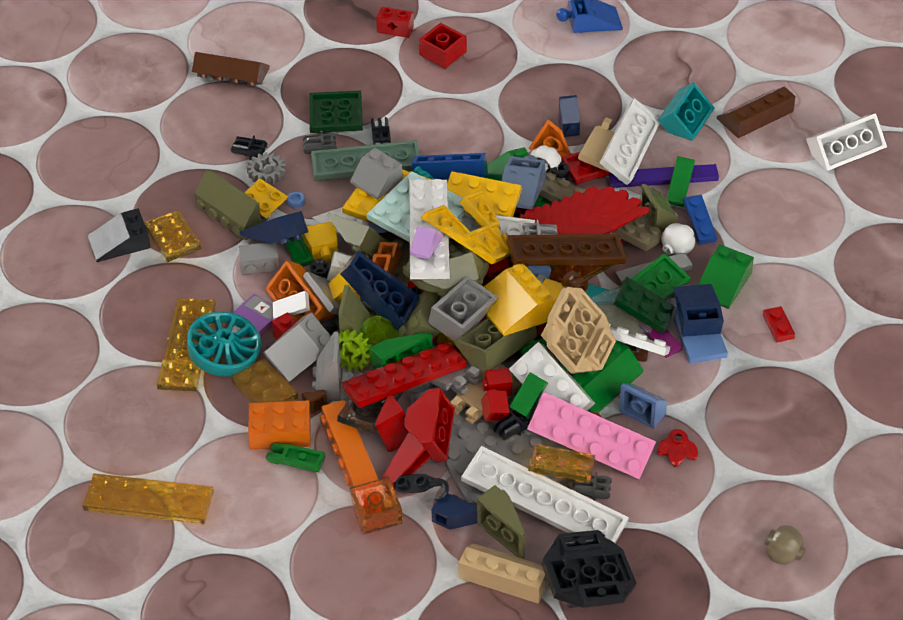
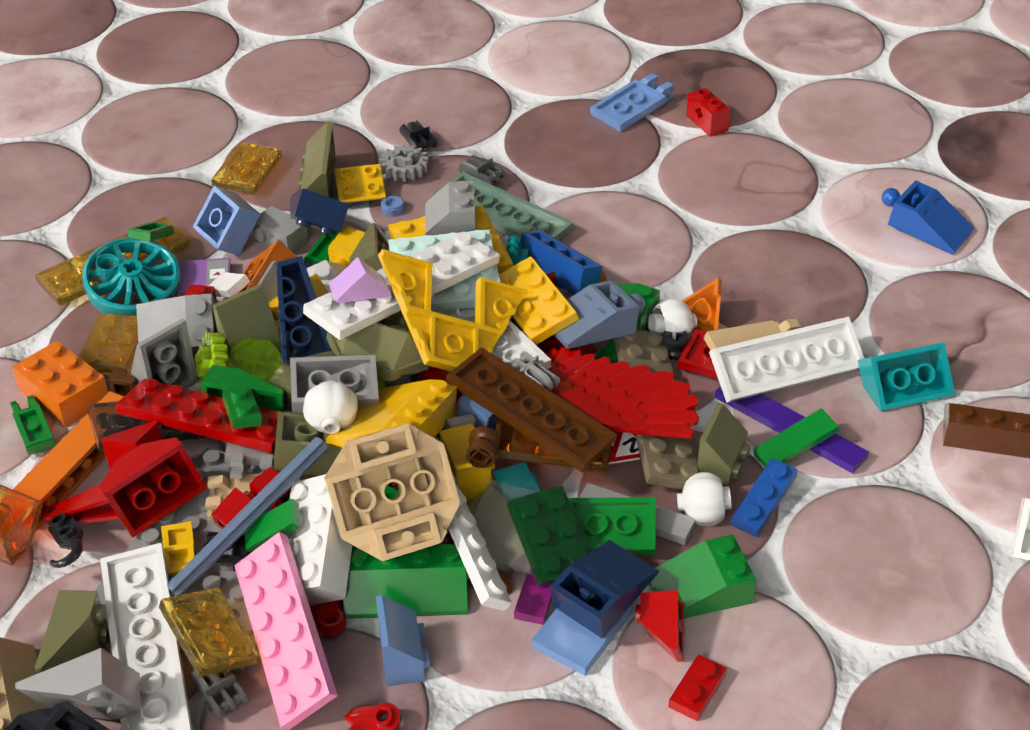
camera: 45 degrees right, 5 degrees down
(120, 236) = (209, 142): black slope -> none
(197, 309) = (150, 231): none -> green tile
(228, 67) = (501, 67): reddish brown slope -> none
(229, 272) = (226, 220): none -> medium blue brick
(335, 111) = (539, 155): dark green plate -> none
(339, 44) = (632, 102): none -> medium blue tile
(380, 133) = (552, 194): black arm -> none
(425, 354) = (241, 407): none -> green plate
(442, 45) = (722, 155): red brick -> none
(454, 512) = (51, 580): dark blue slope -> none
(474, 441) = (178, 546): none -> yellow slope
(489, 315) = (330, 407): none -> white plant
(512, 398) = (247, 517): none -> sand blue axle
(557, 519) = (91, 682): none -> light grey slope
(569, 115) = (756, 293): dark blue slope -> none
(737, 307) = (663, 620): none -> red slope

